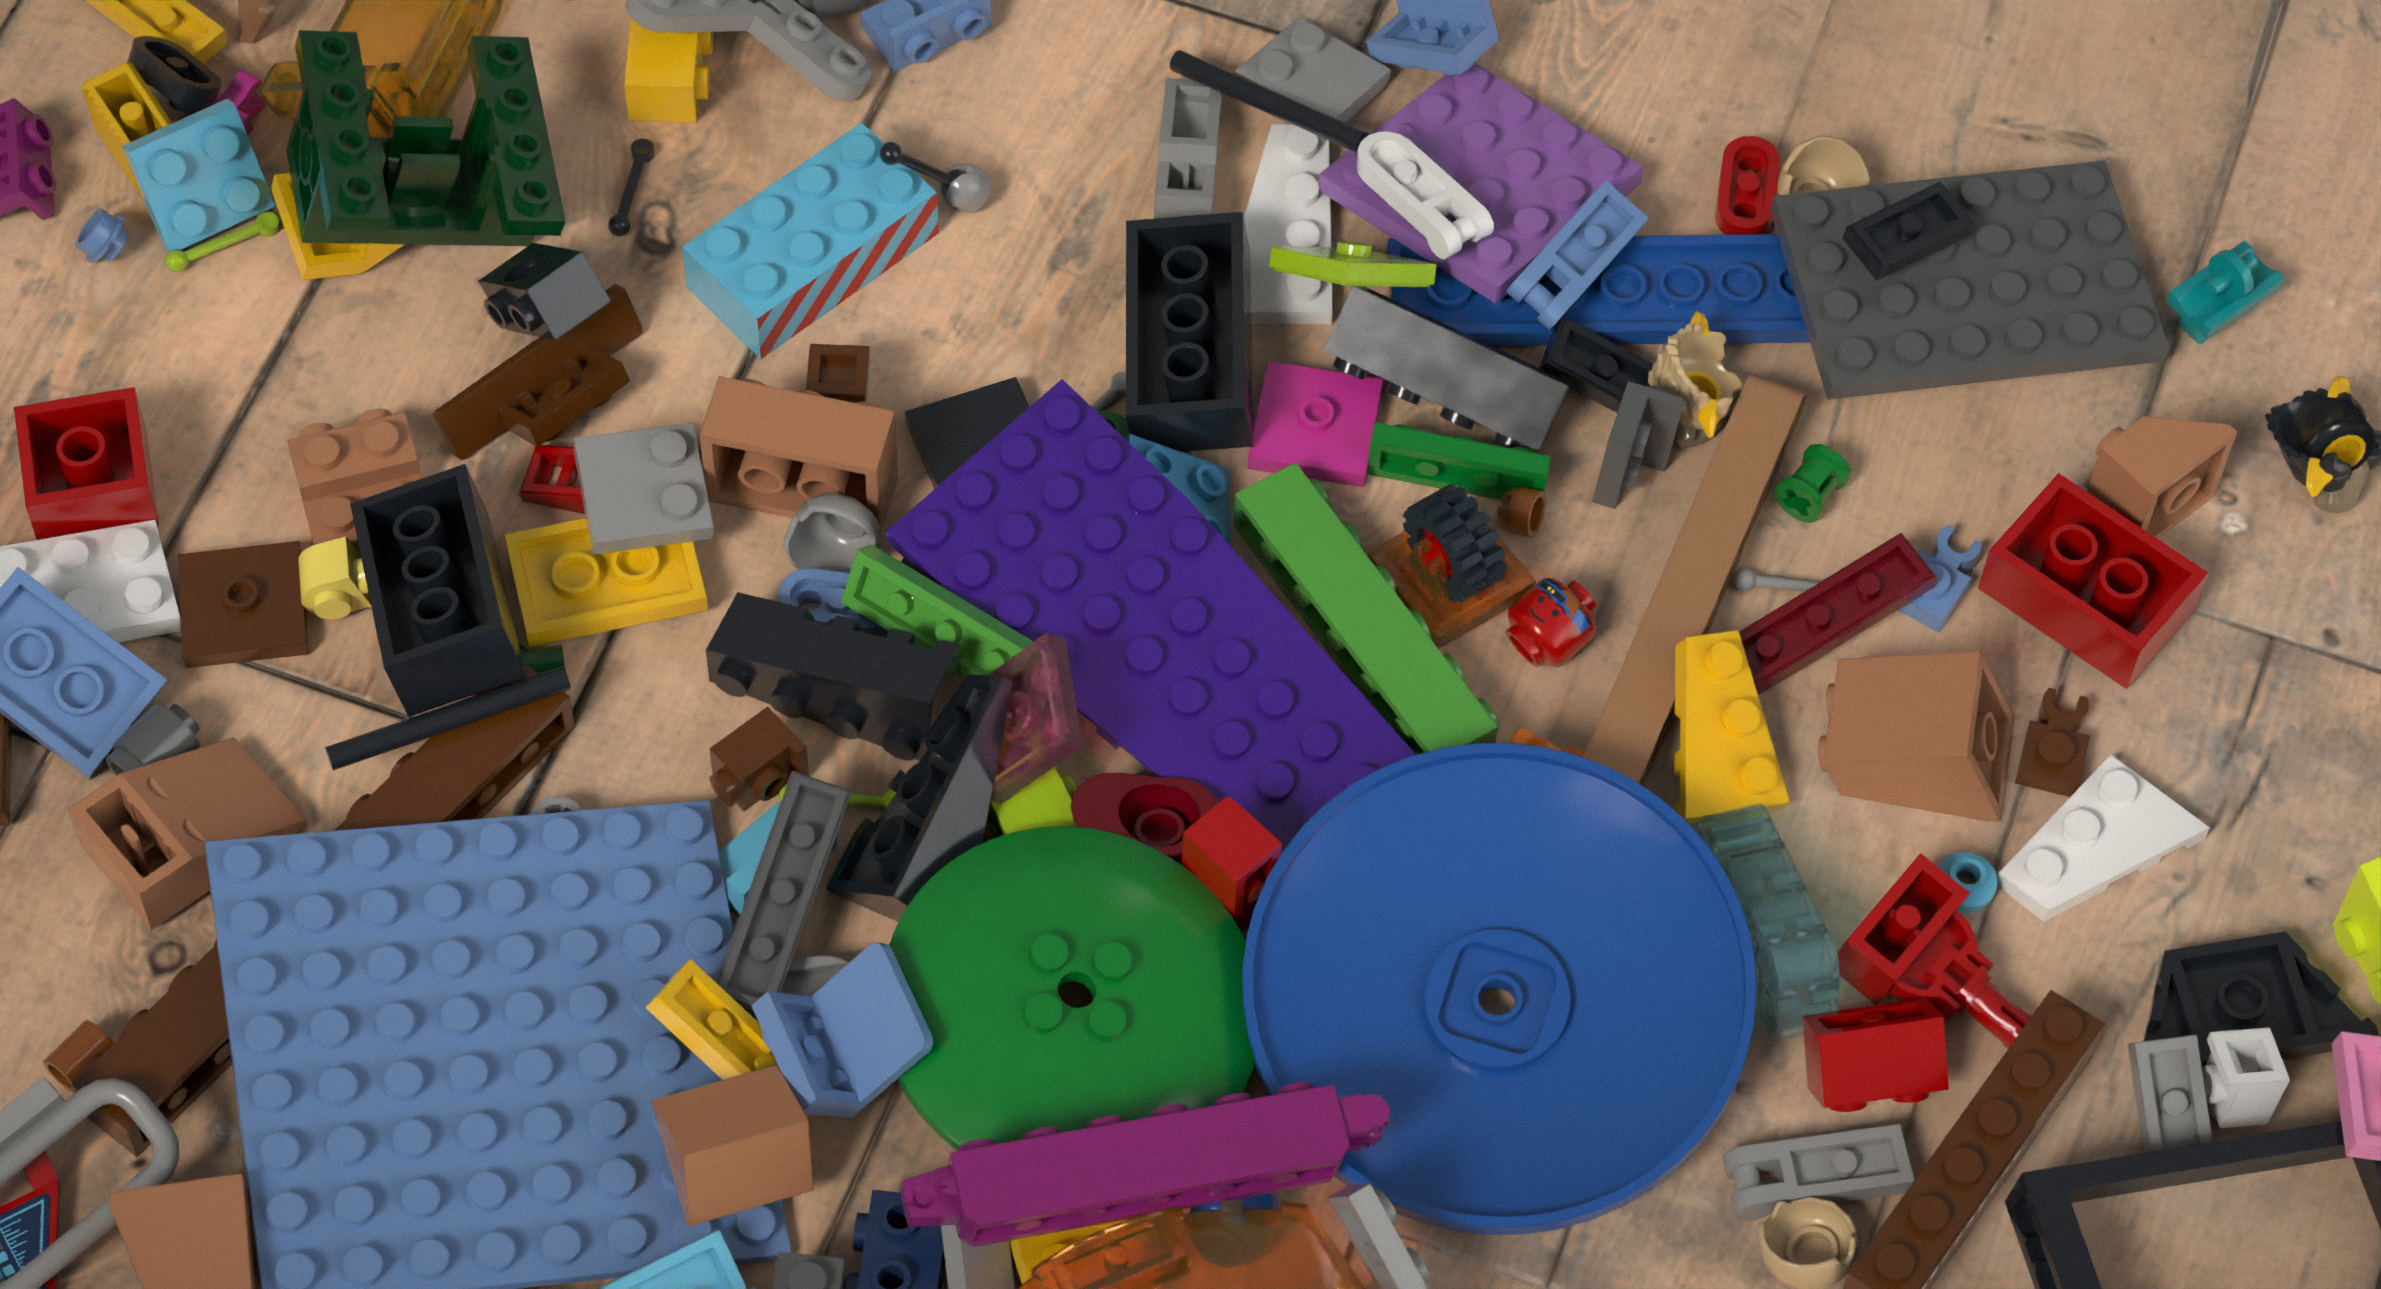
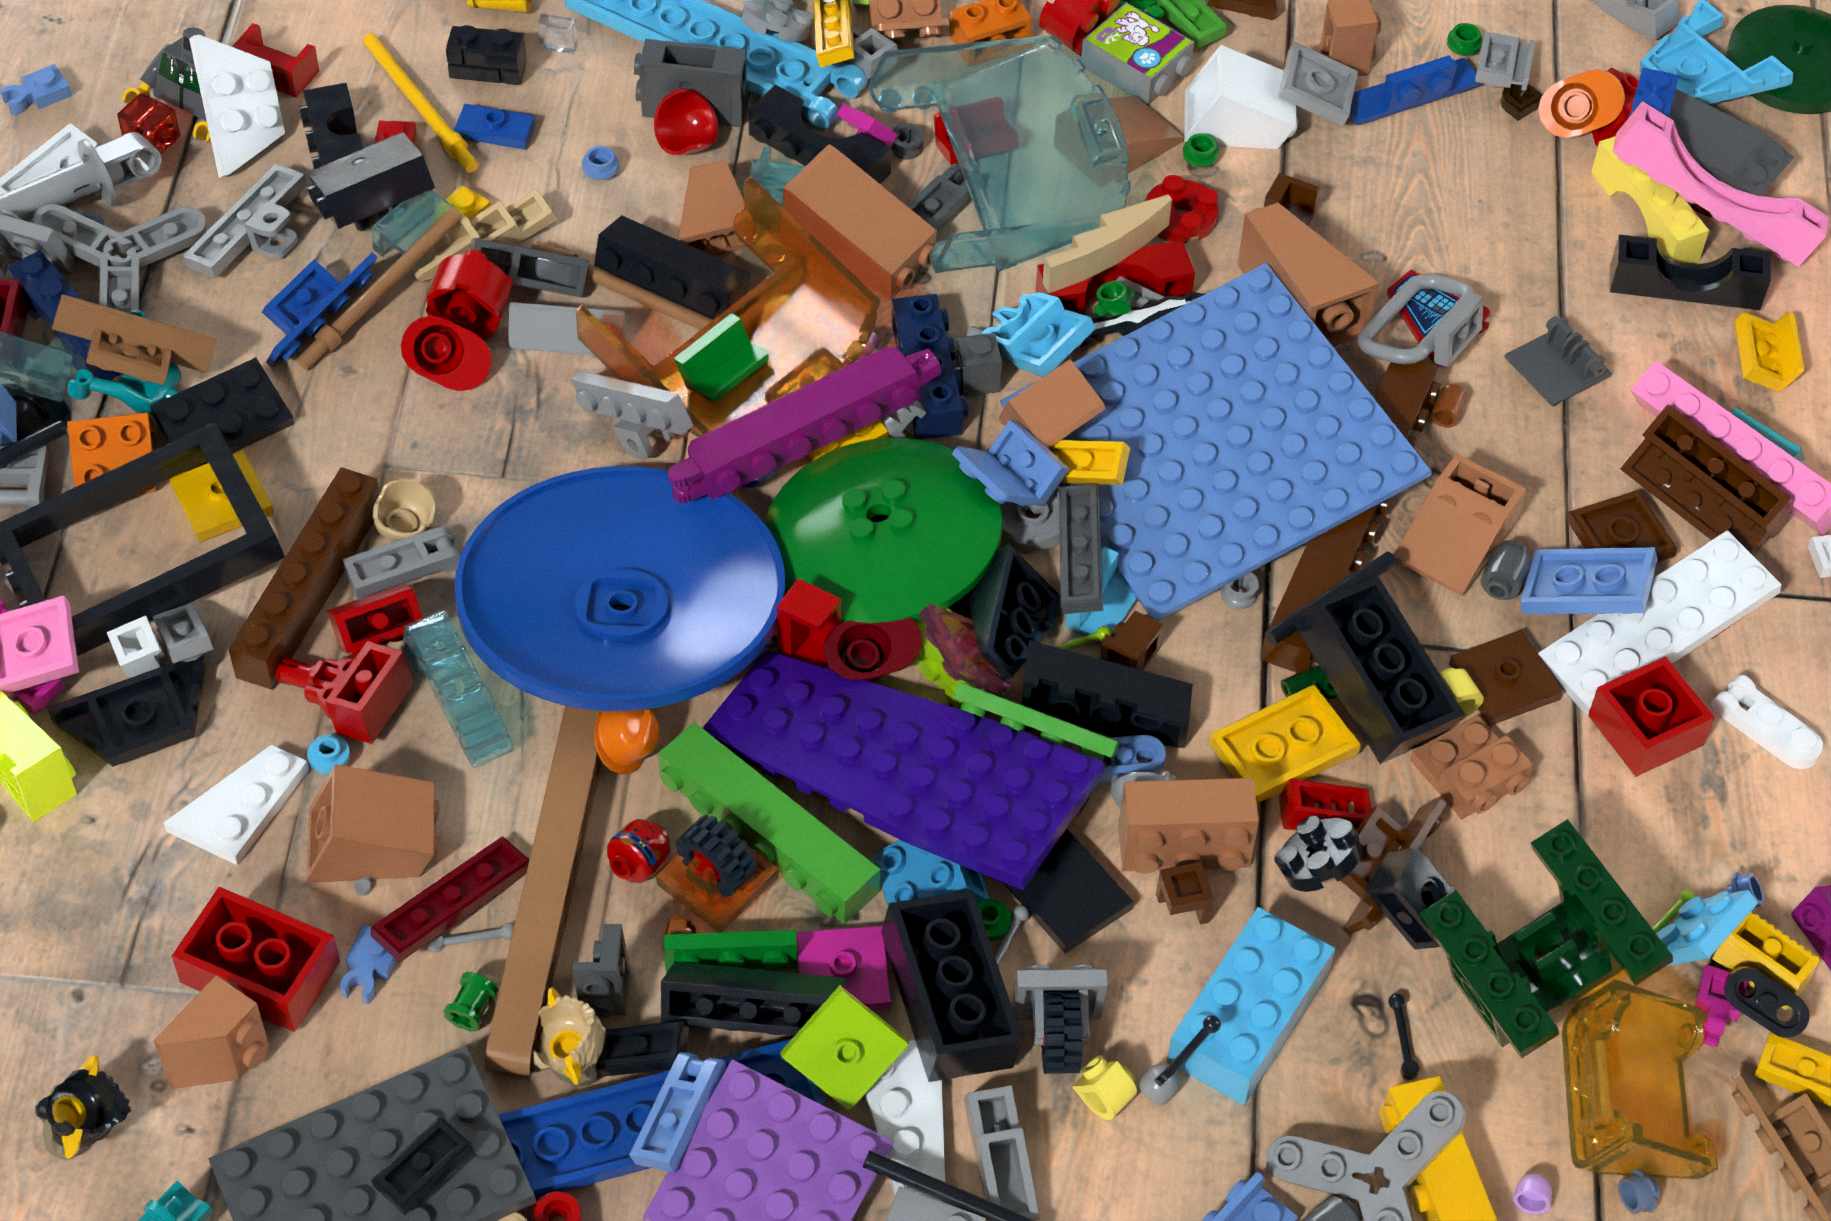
camera: 165 degrees right, 5 degrees down
(643, 488) = (1286, 779): light grey plate -> none
(648, 359) = (1319, 852): none -> black plate
(1032, 193) = (1105, 1087): none -> light yellow plate
(1059, 271) = (1060, 1011): none -> plate
(1422, 192) = (809, 1108): white plate -> none
(1724, 737) = (506, 792): yellow wing -> none
(2054, 749) = (273, 858): reddish brown plate -> none

